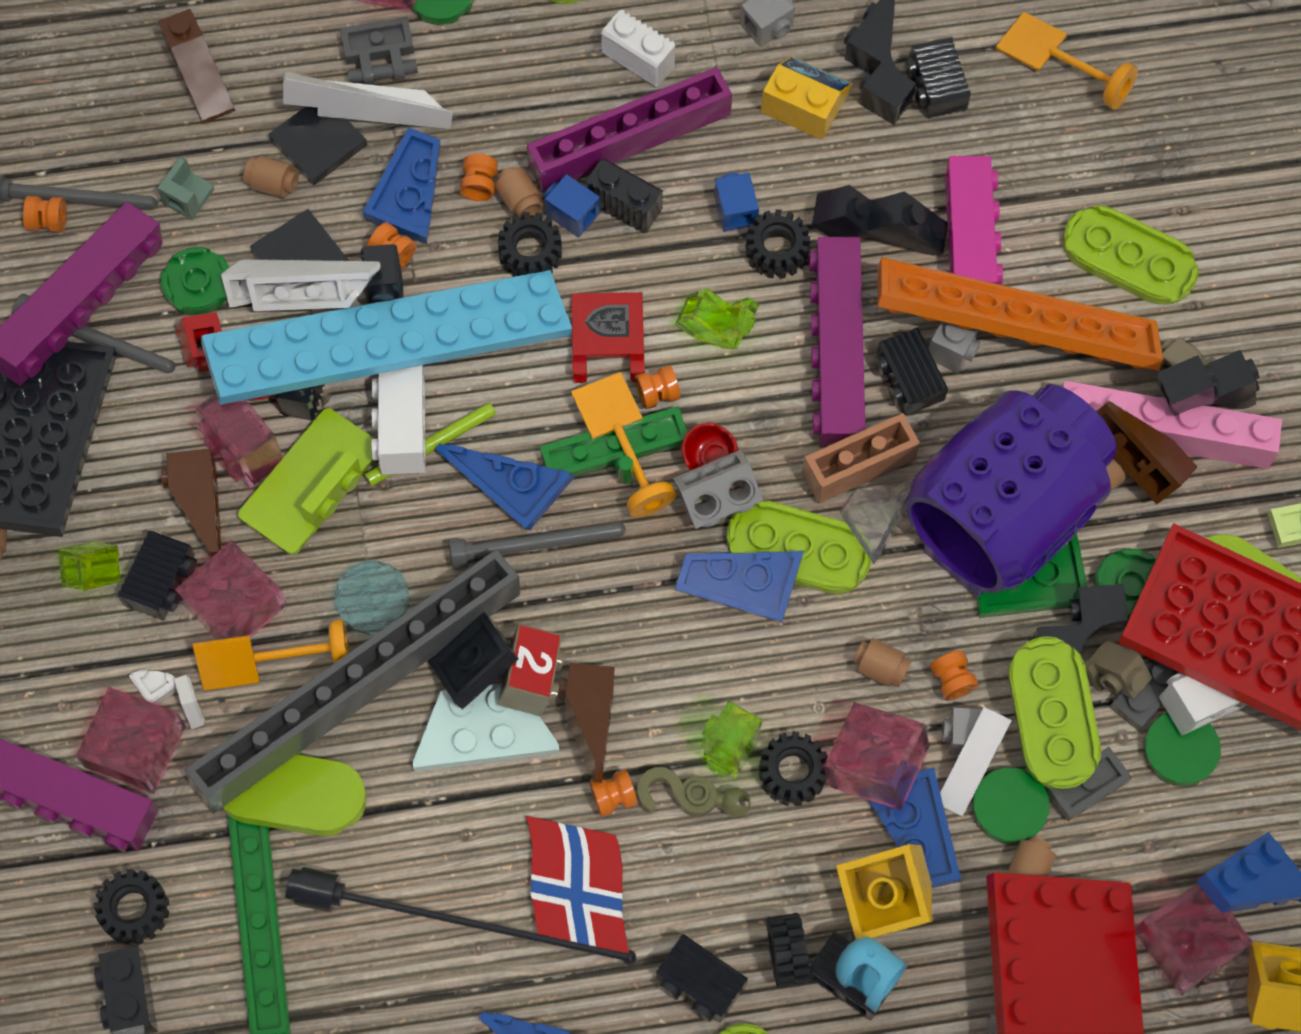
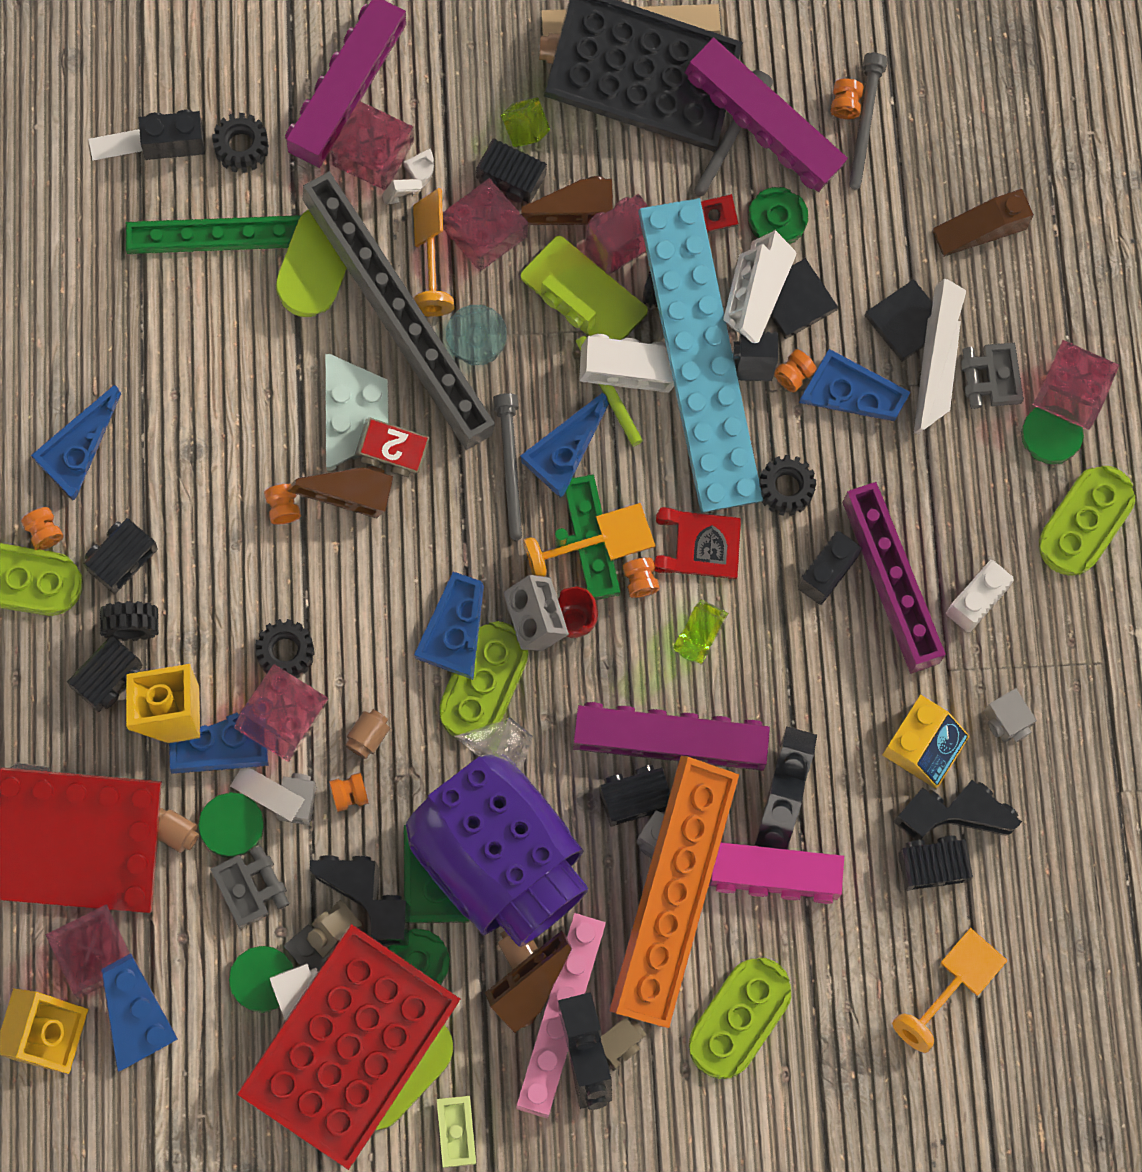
camera: 90 degrees right, 5 degrees up
(184, 190) = (864, 209): sand green panel -> none
(271, 176) = (871, 278): medium nougat brick -> none
(473, 660) = (404, 401): black tile -> none
(478, 178) = (864, 449): orange wheel -> none
(519, 192) = (839, 479): medium nougat brick -> none
(571, 205) = (823, 522): blue brick -> none
(572, 892) = (212, 468): flag -> none
(695, 796) = (272, 568): olive piece -> none
(730, 740) = (309, 595): clear neon green brick -> none
(735, 201) = (818, 664): blue brick -> none
(782, 226) = (776, 678): black tyre -> none
(860, 458) = (553, 737): nougat brick -> none
(878, 969) = (100, 678): medium azure helmet -> none
(1054, 713) = (298, 864): lime tile -> none

